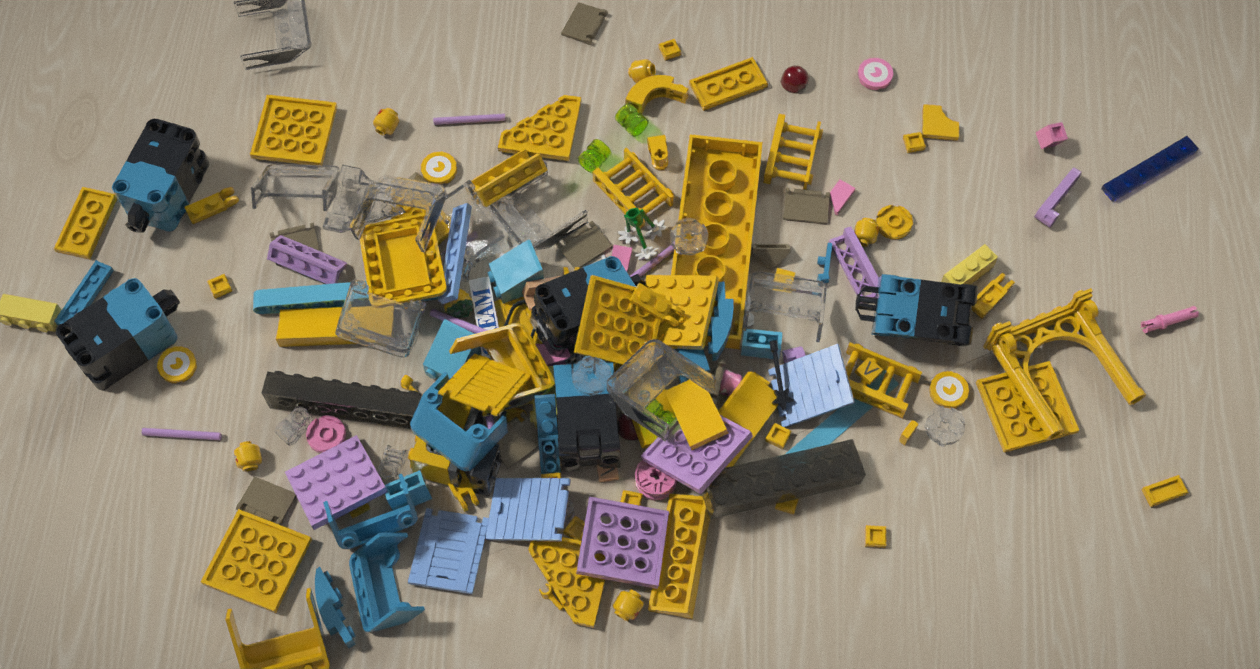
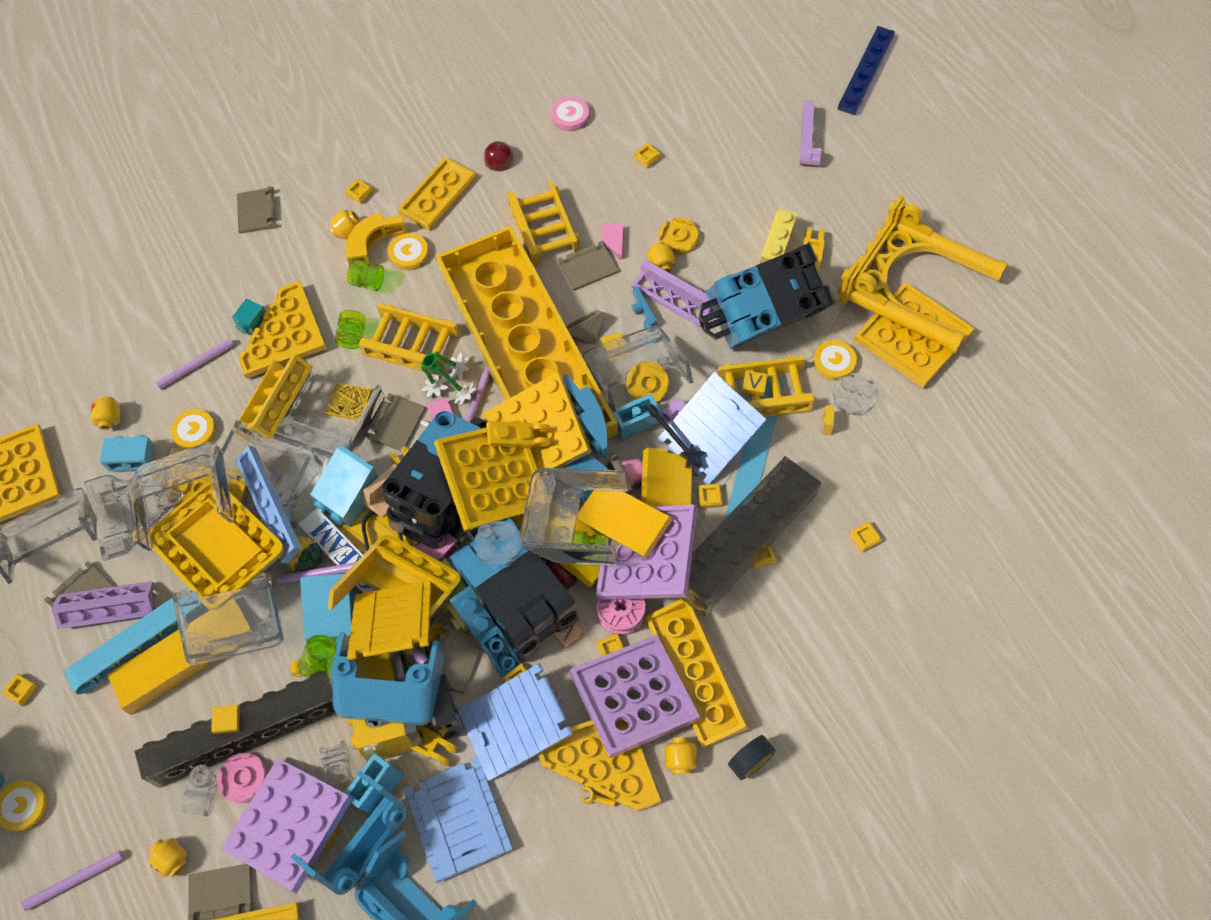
camera: 30 degrees left, 0 degrees up
(337, 386) = (225, 719): none -> yellow tile
(383, 160) = (126, 452): none -> medium azure brick
(423, 379) = (317, 655): none -> clear neon green wheel
(527, 105) = (248, 316): none -> teal brick
(559, 209) = (347, 401): none -> yellow piece
(575, 529) = (575, 711): yellow tile -> none
(658, 150) = (411, 290): yellow piece -> none
(676, 118) = (408, 251): none -> yellow tile
(676, 636) = (751, 757): none -> black wheel
(686, 246) = (501, 363): clear plate -> none
(790, 321) = (647, 379): none -> yellow tile
(937, 125) = (658, 129): yellow tile -> none
(1051, 135) = (766, 83): bright pink brick -> none
(1161, 322) = (972, 193): bright pink pin -> none
(1164, 491) = (1081, 340): yellow tile -> none

